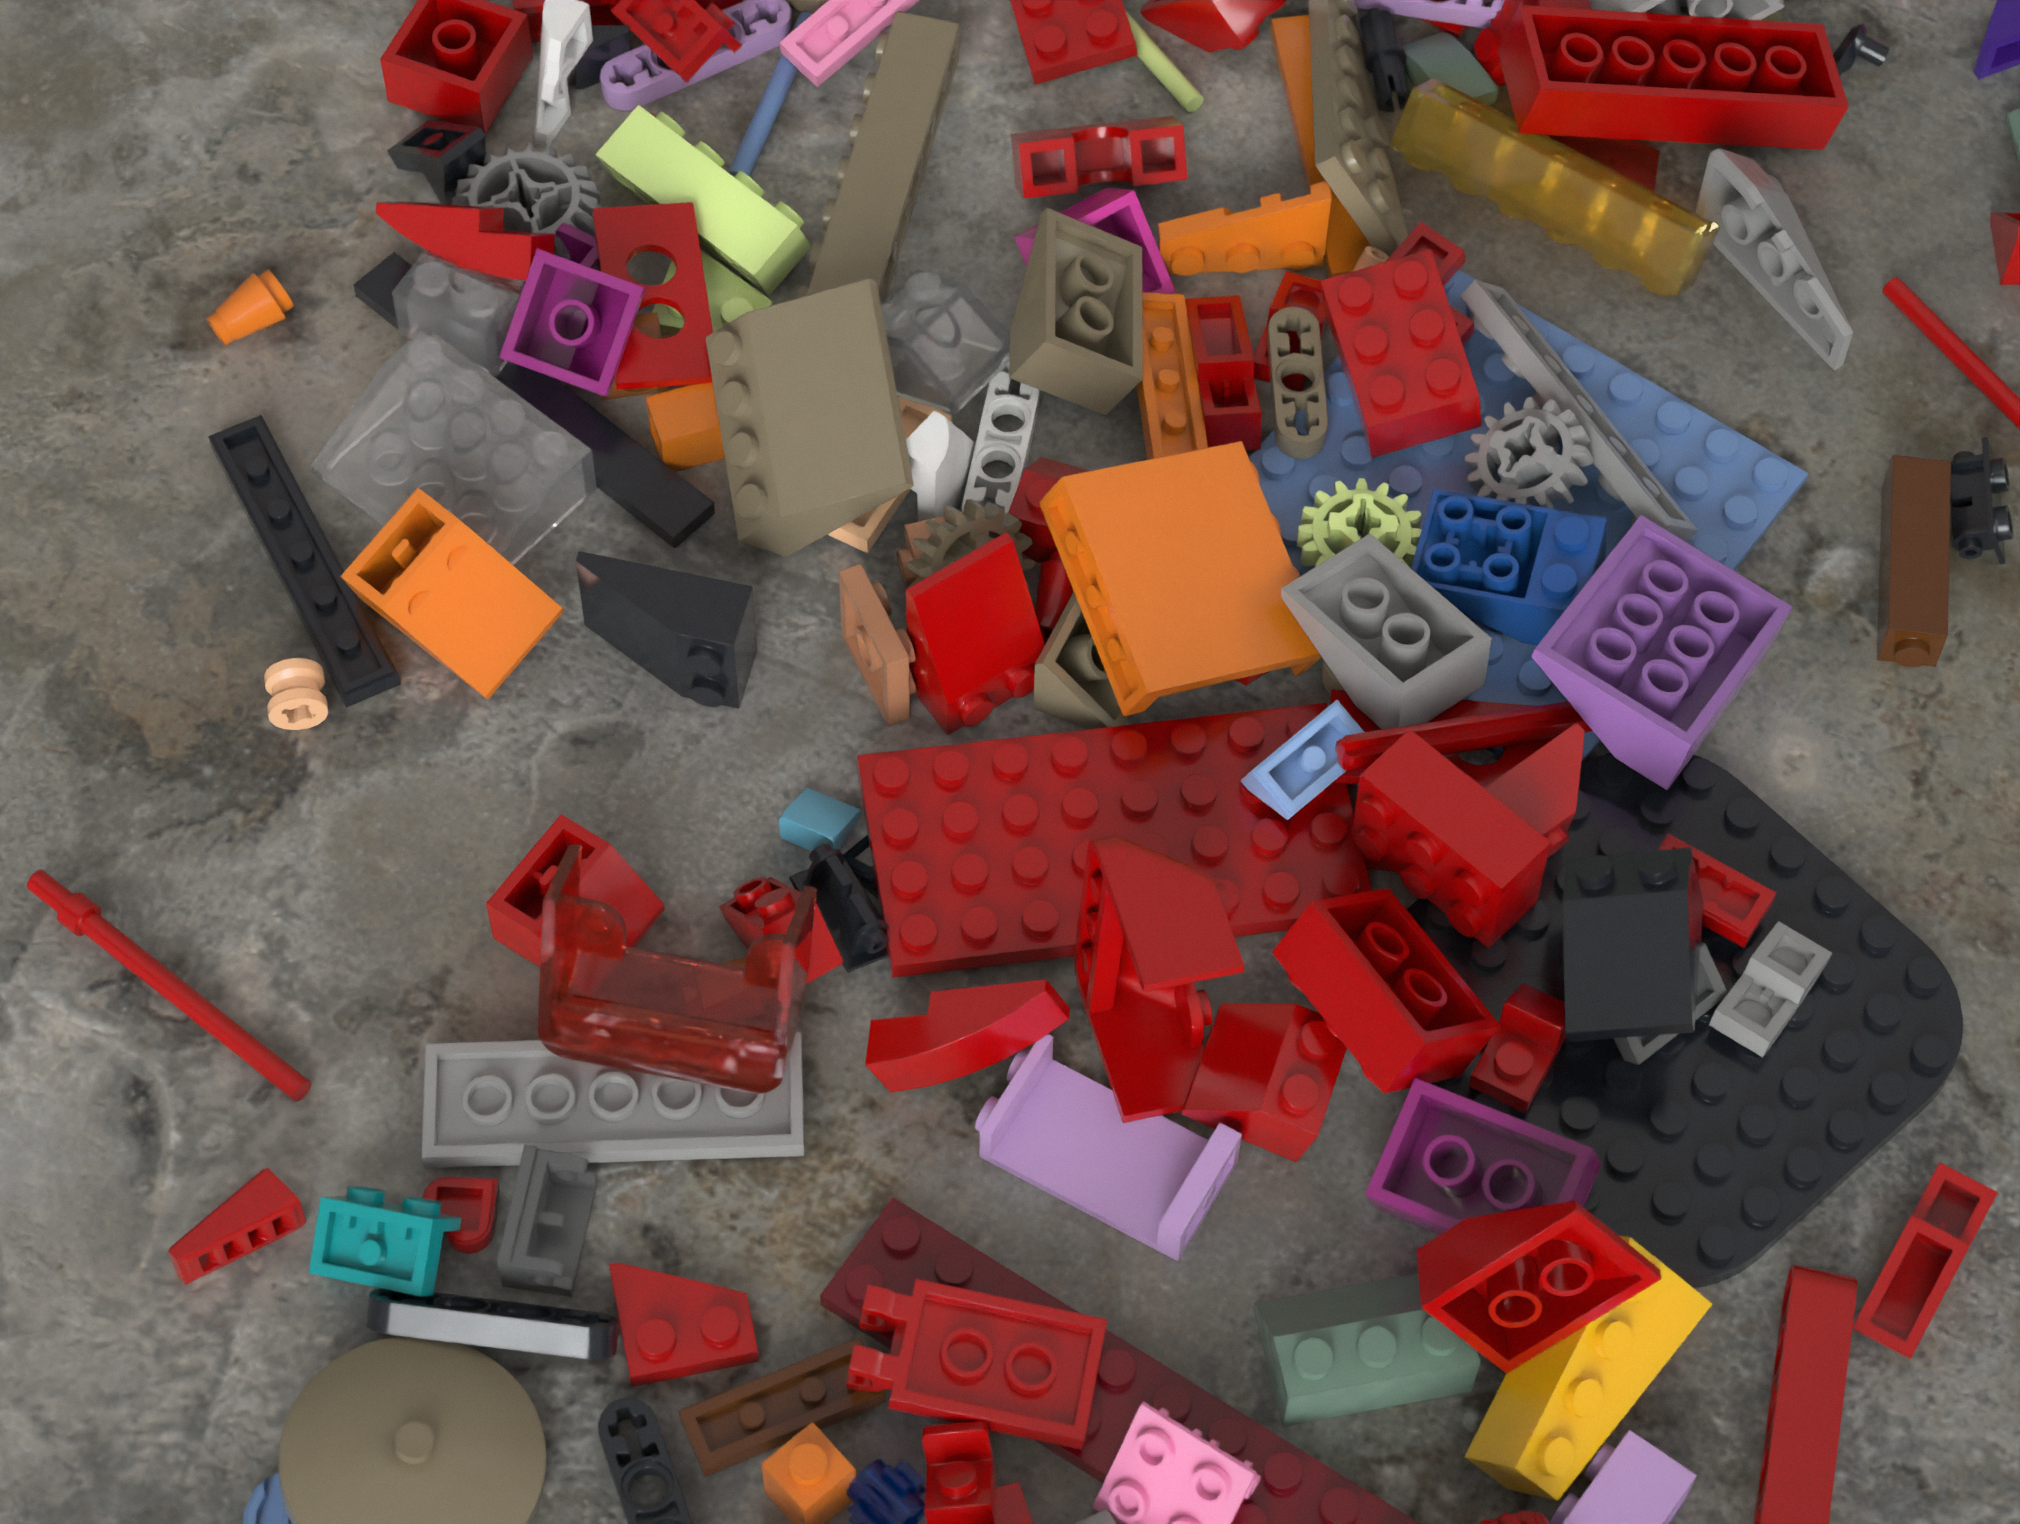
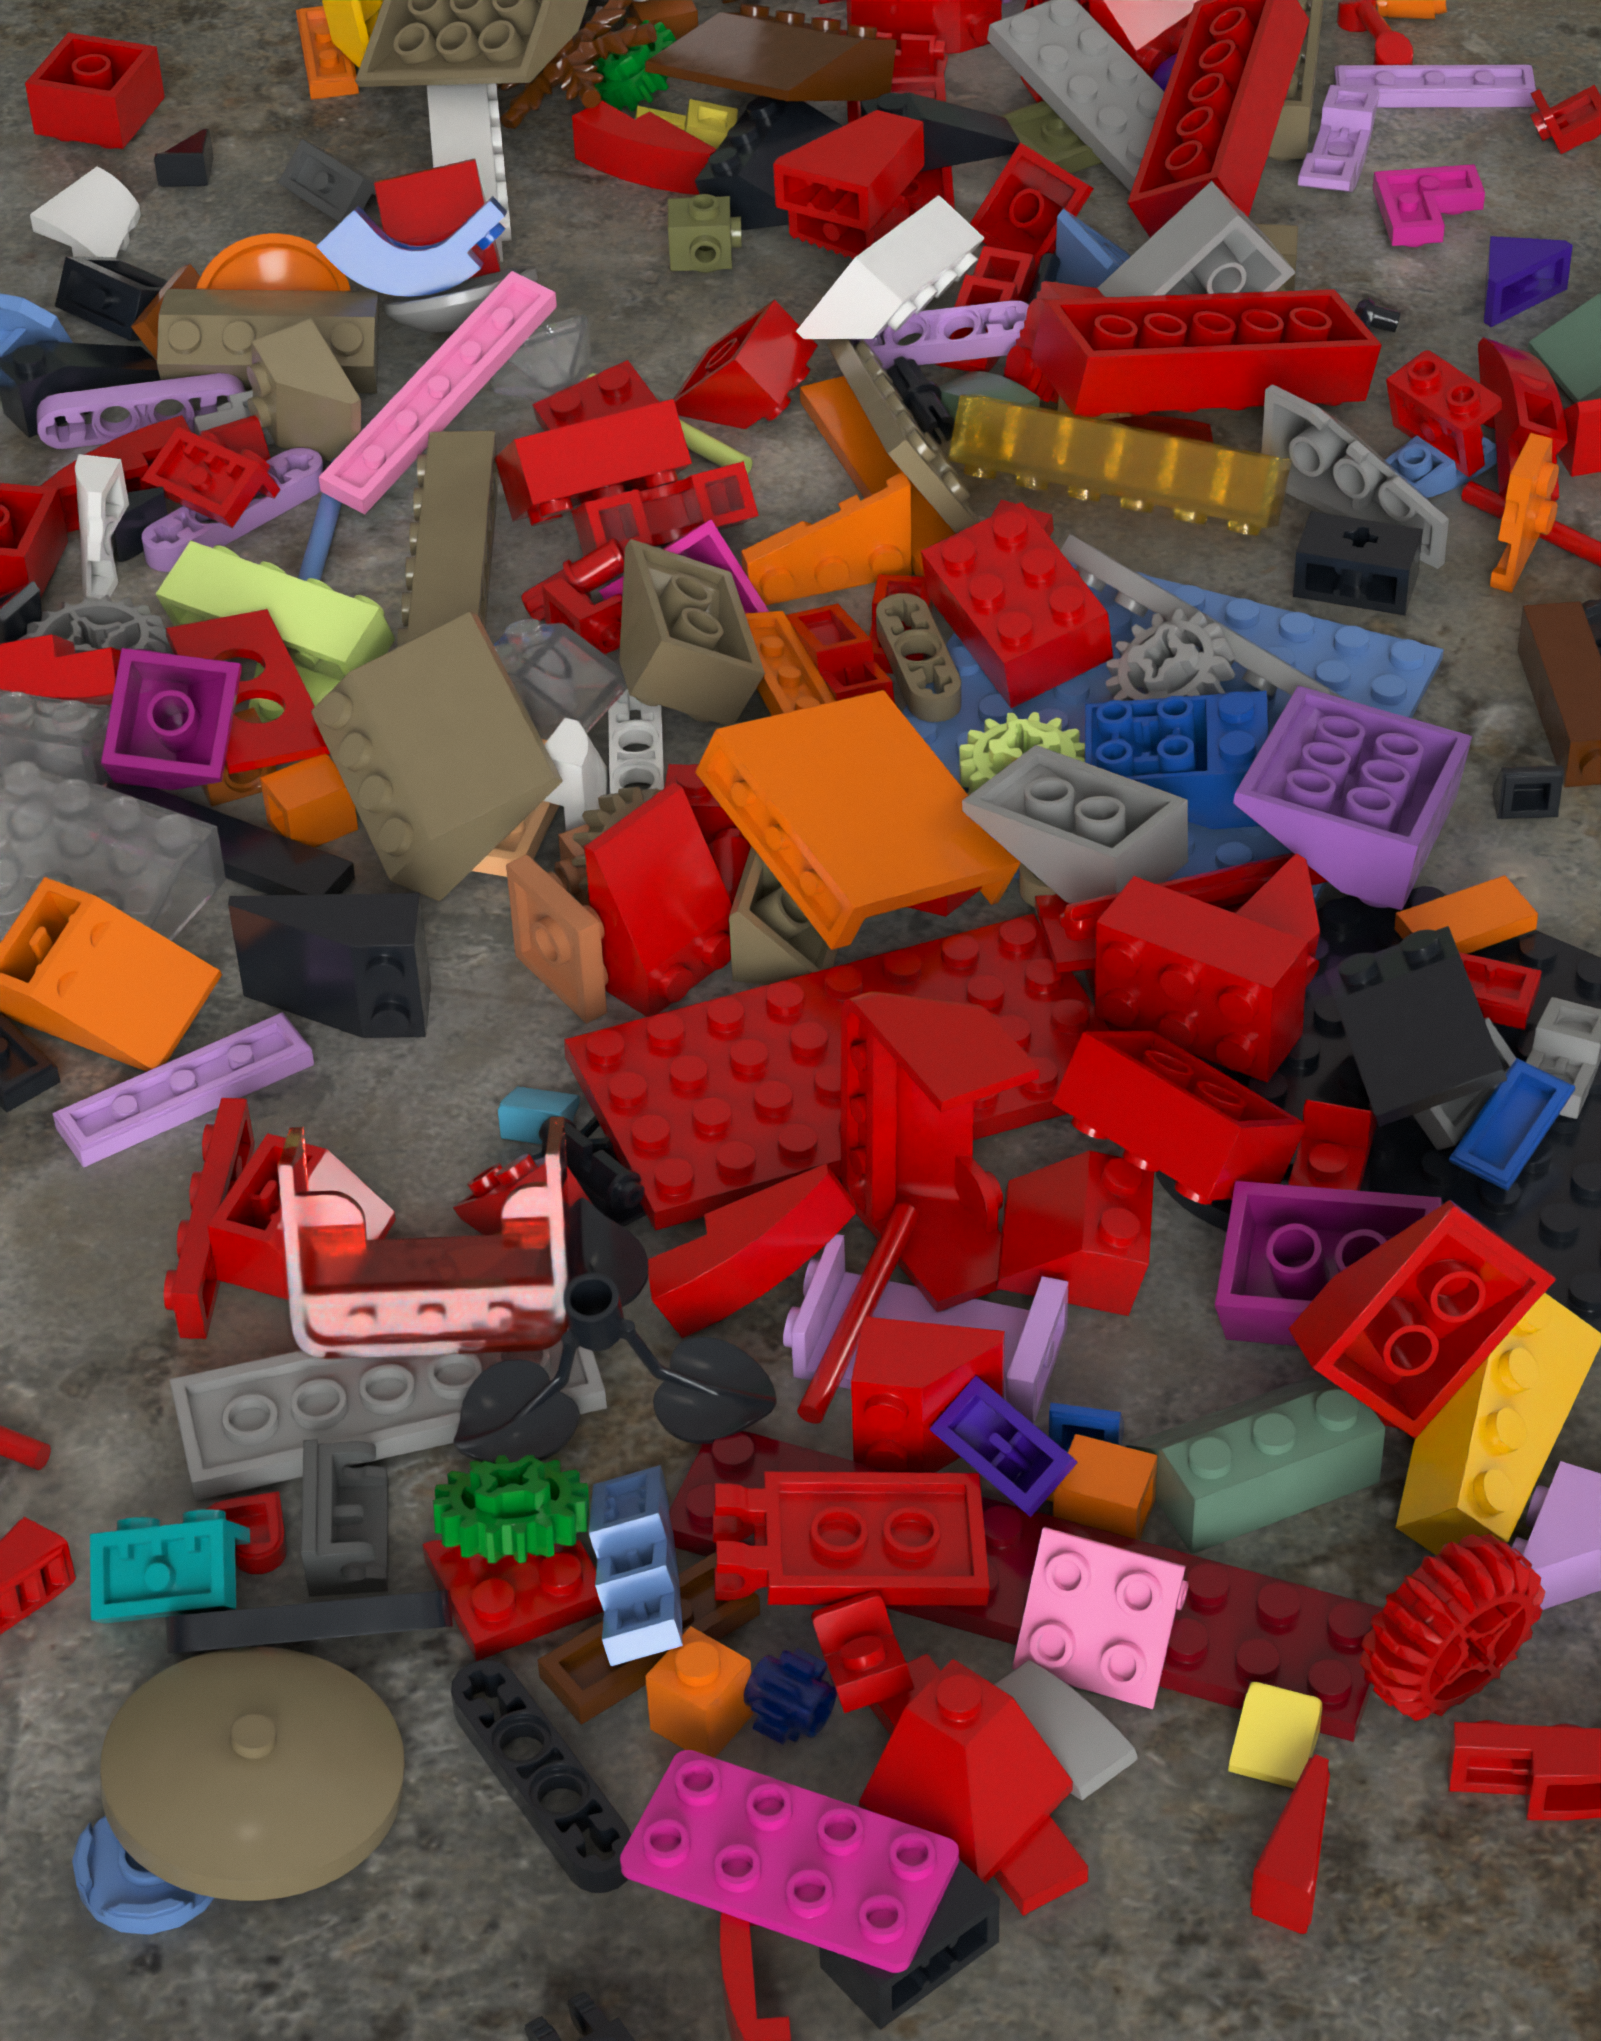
camera: 10 degrees left, 15 degrees down
(507, 721) = (182, 1089): none -> lavender tile
(529, 807) = (225, 1152): none -> red plate
(689, 1255) = (511, 1508): none -> green gear
(720, 1156) = (704, 1394): none -> black plant
(785, 1339) = (636, 1566): none -> medium blue slope
(985, 262) = (595, 623): none -> red bracket
(995, 217) = (583, 575): none -> red axle
(1043, 86) = (592, 461): none -> red brick
(1050, 1111) = (862, 1303): none -> red bar
(1077, 1226) = (907, 1380): none -> red slope
(1136, 1301) = (1003, 1446): none -> dark purple slope
(1217, 1352) = (1107, 1487): none -> orange brick
(1220, 1285) = (1089, 1422): none -> blue slope
(1303, 763) = (1026, 955): light blue slope -> none
(1696, 1060) = (1512, 1124): none -> blue tile
(1728, 811) = (1474, 915): none -> orange tile
(1753, 356) = (1357, 563): none -> black brick
(1835, 668) = (1528, 792): none -> black slope
(1873, 247) = (1431, 469): none -> medium blue slope
(1886, 198) = (1442, 408): none -> red bracket
(1932, 339) = (1526, 510): none -> orange wing
(1972, 216) = (1528, 404): none -> red slope

